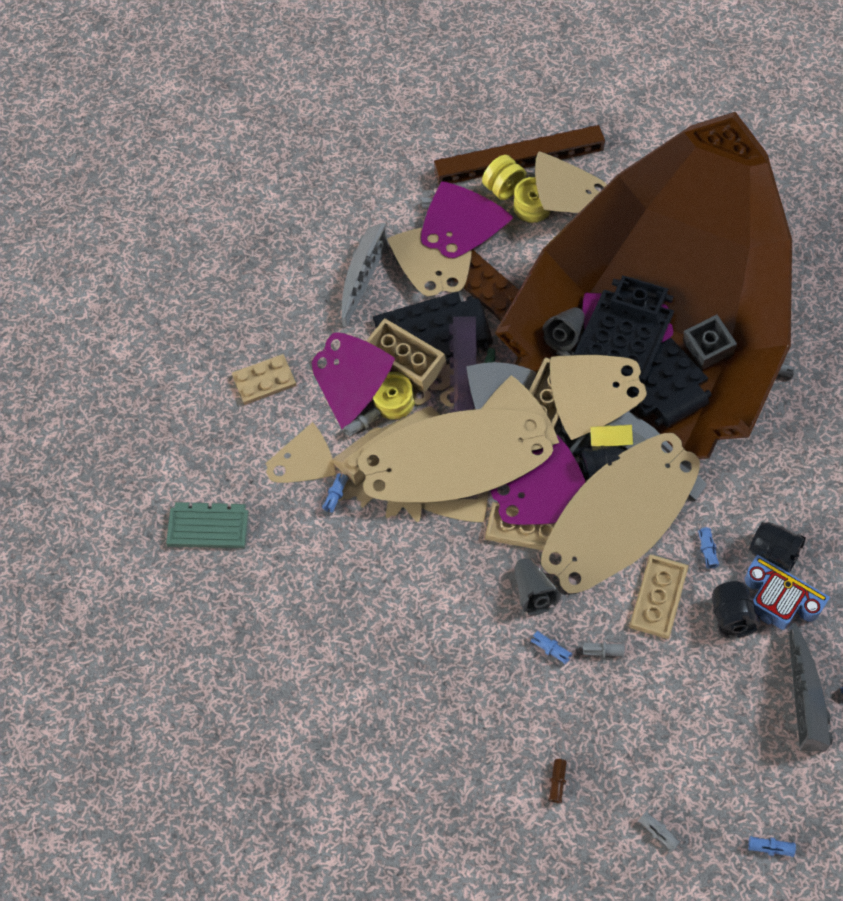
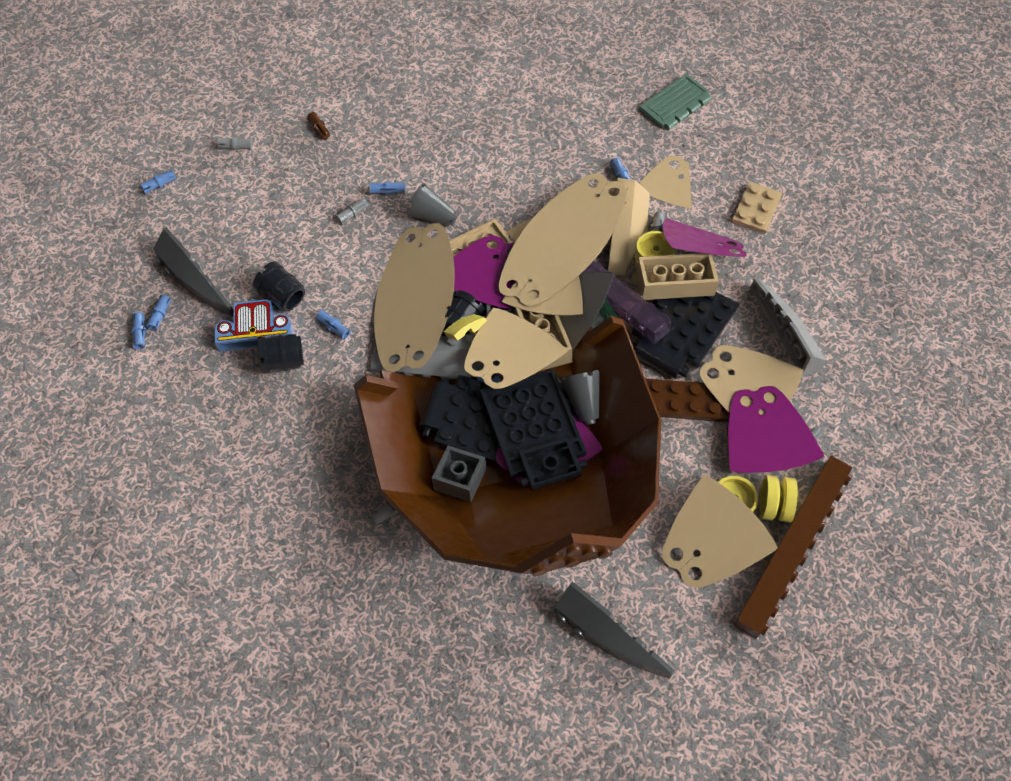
camera: 135 degrees right, 0 degrees up
(659, 596) = (343, 270): tan tile -> none

